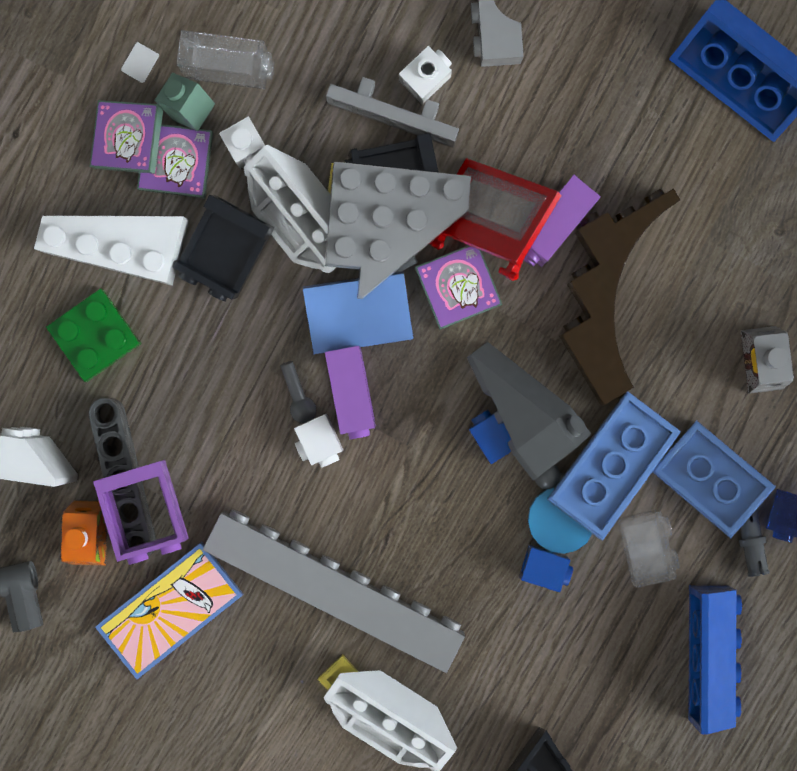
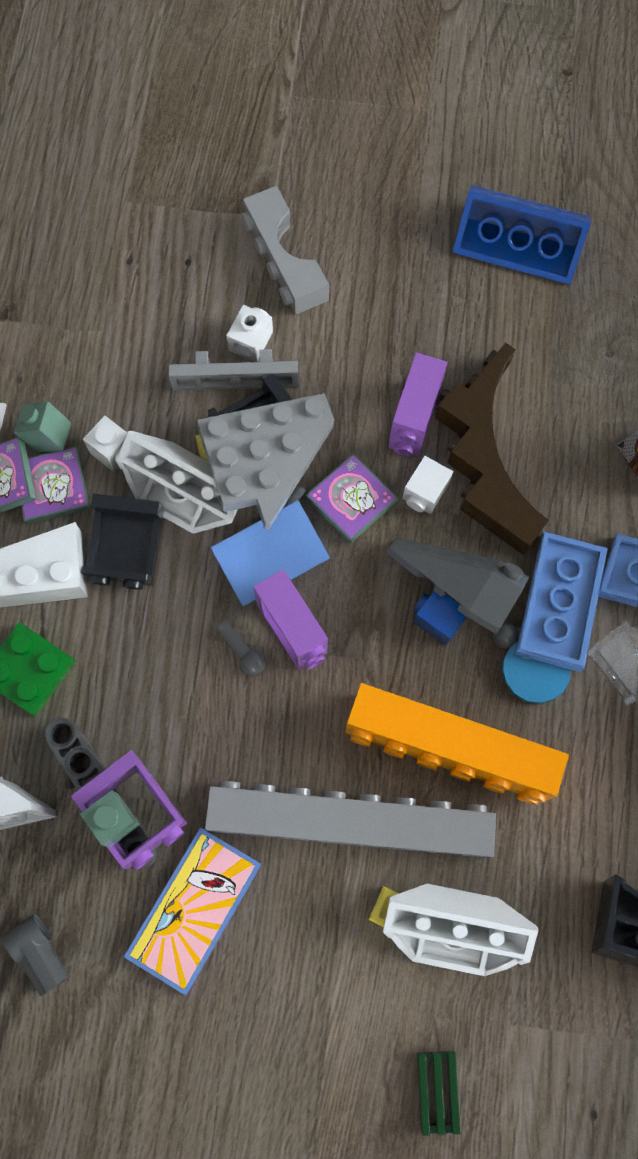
camera: 20 degrees left, 15 degrees down
(84, 534) = (81, 865): orange torso -> none
(119, 519) = (109, 819): none -> sand green brick
(224, 59) = (67, 376): clear window -> none
(318, 441) = (278, 683): white brick -> none
(454, 563) = (456, 744): none -> light orange brick
(502, 215) = (366, 415): piece -> none
(534, 304) = (427, 485): none -> white brick
(546, 569) = (542, 719): blue brick -> none

